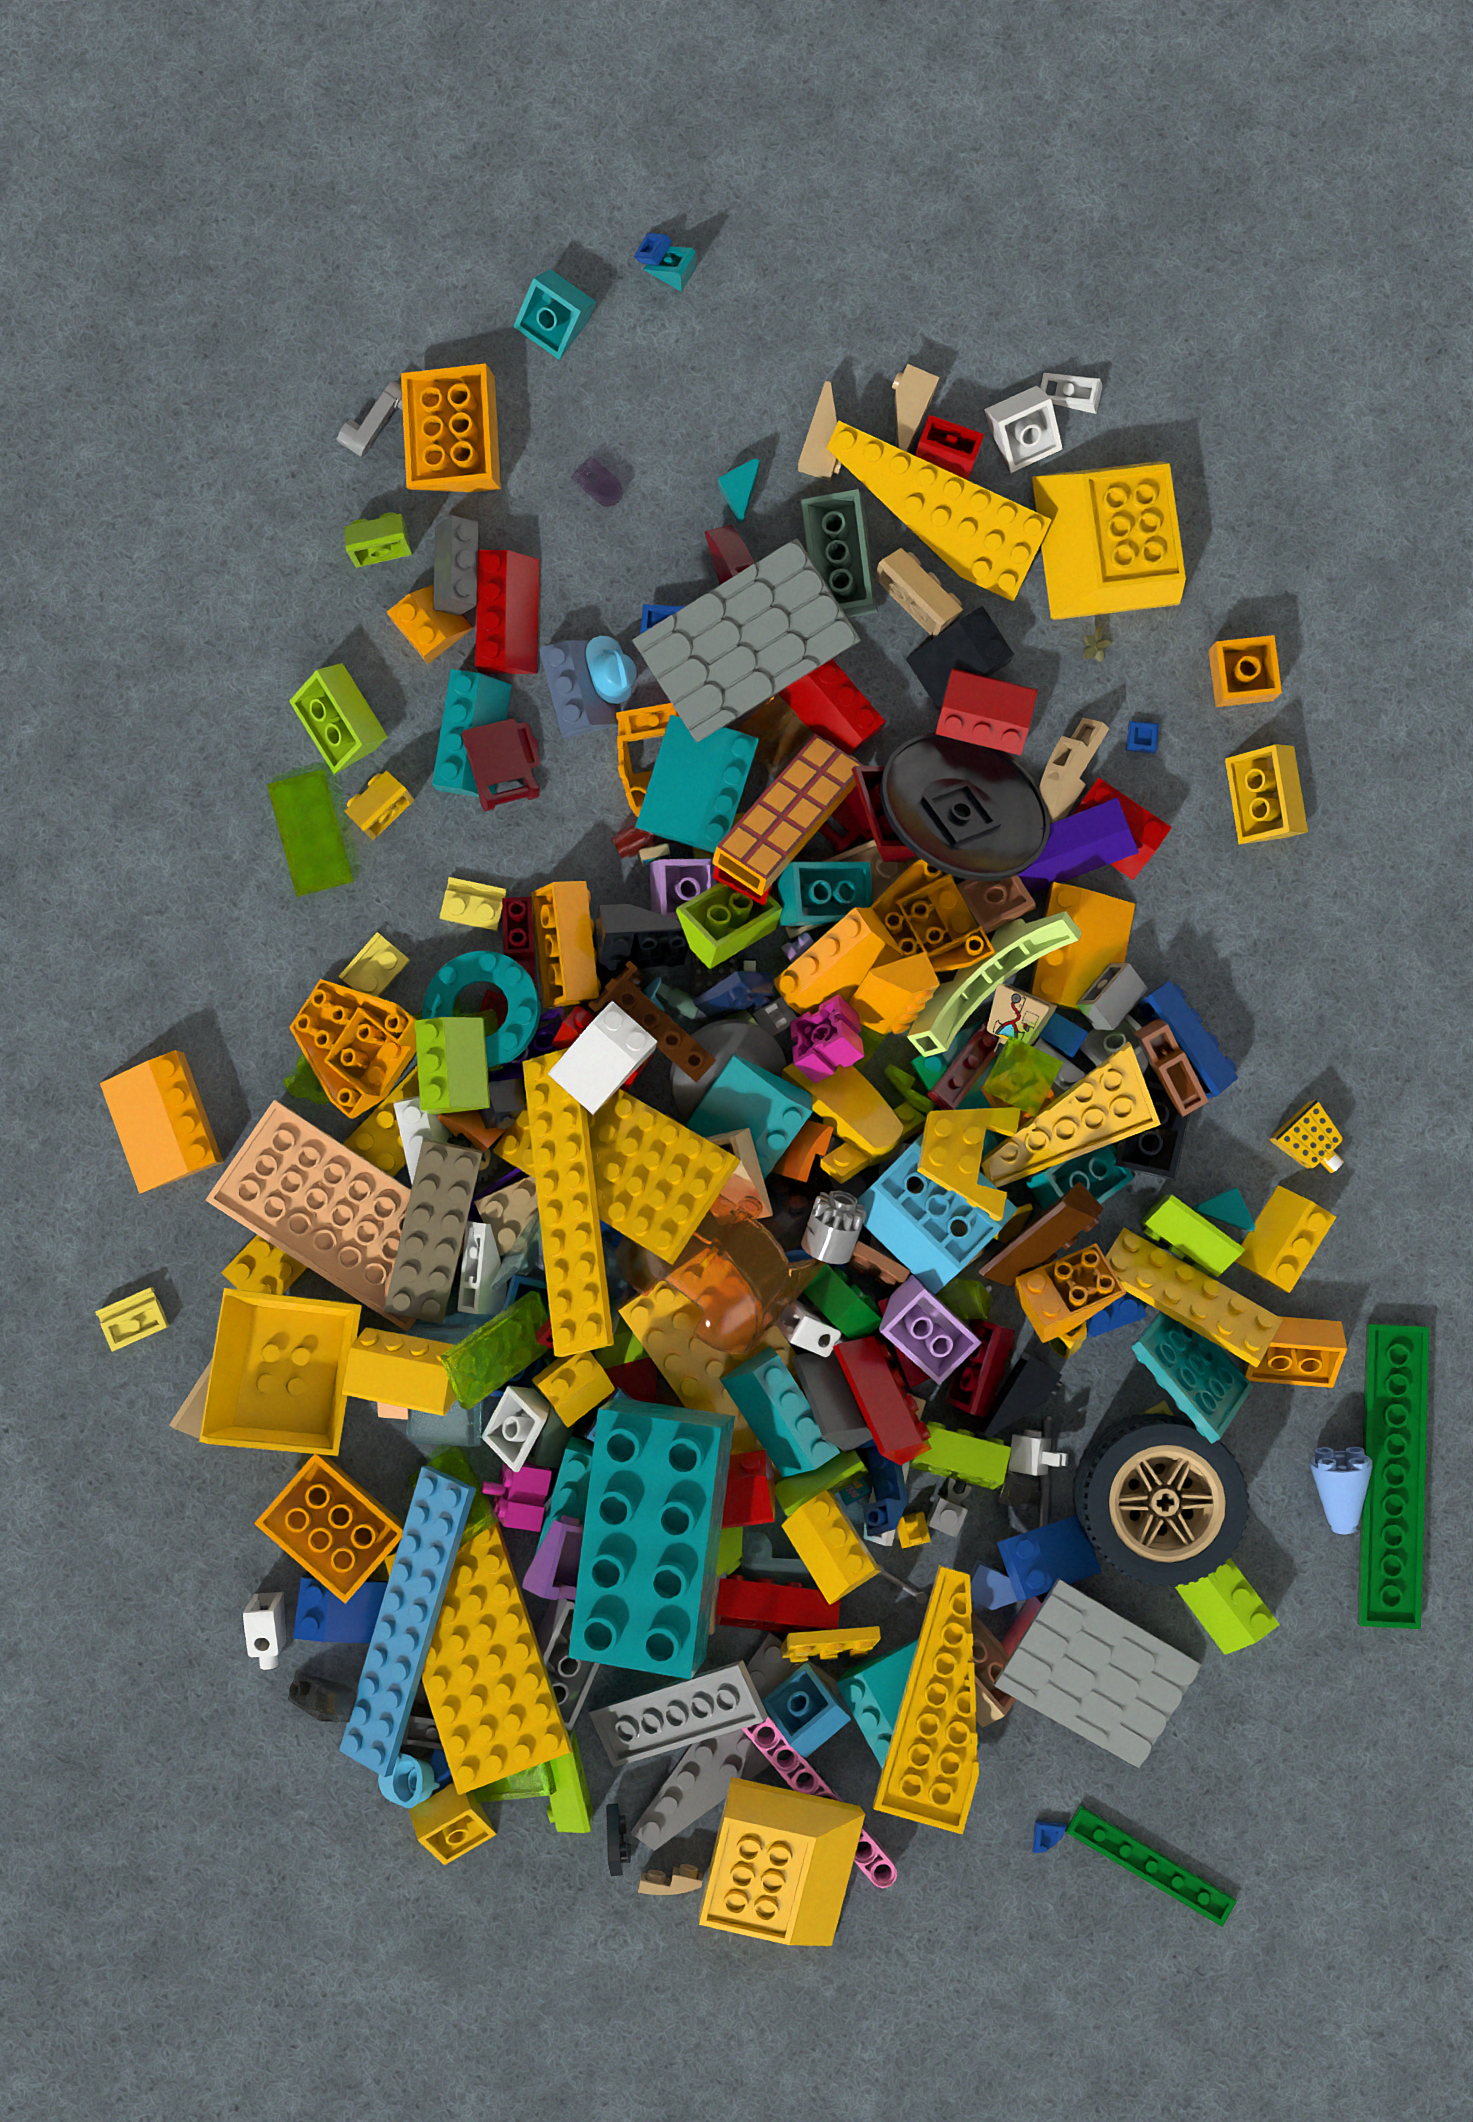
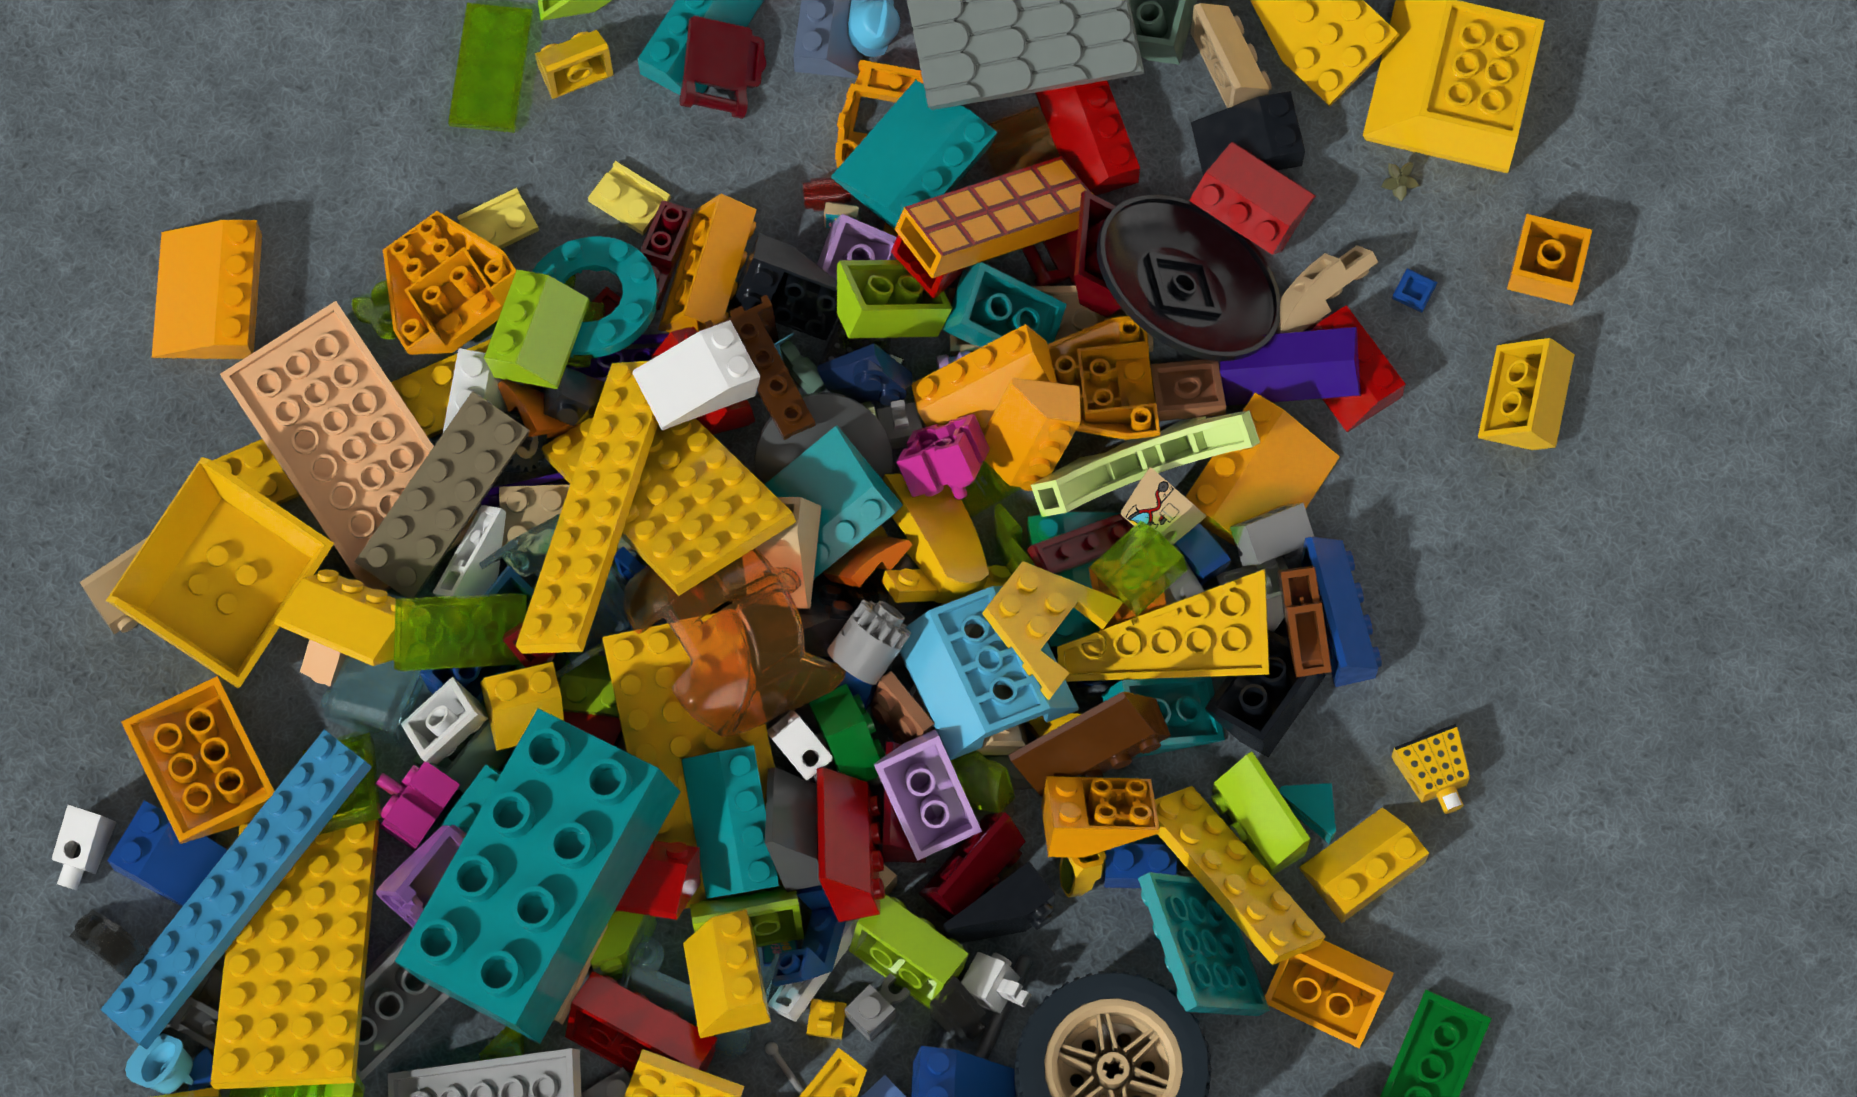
camera: 25 degrees right, 15 degrees down
(132, 1319) = (86, 477): light yellow plate -> none

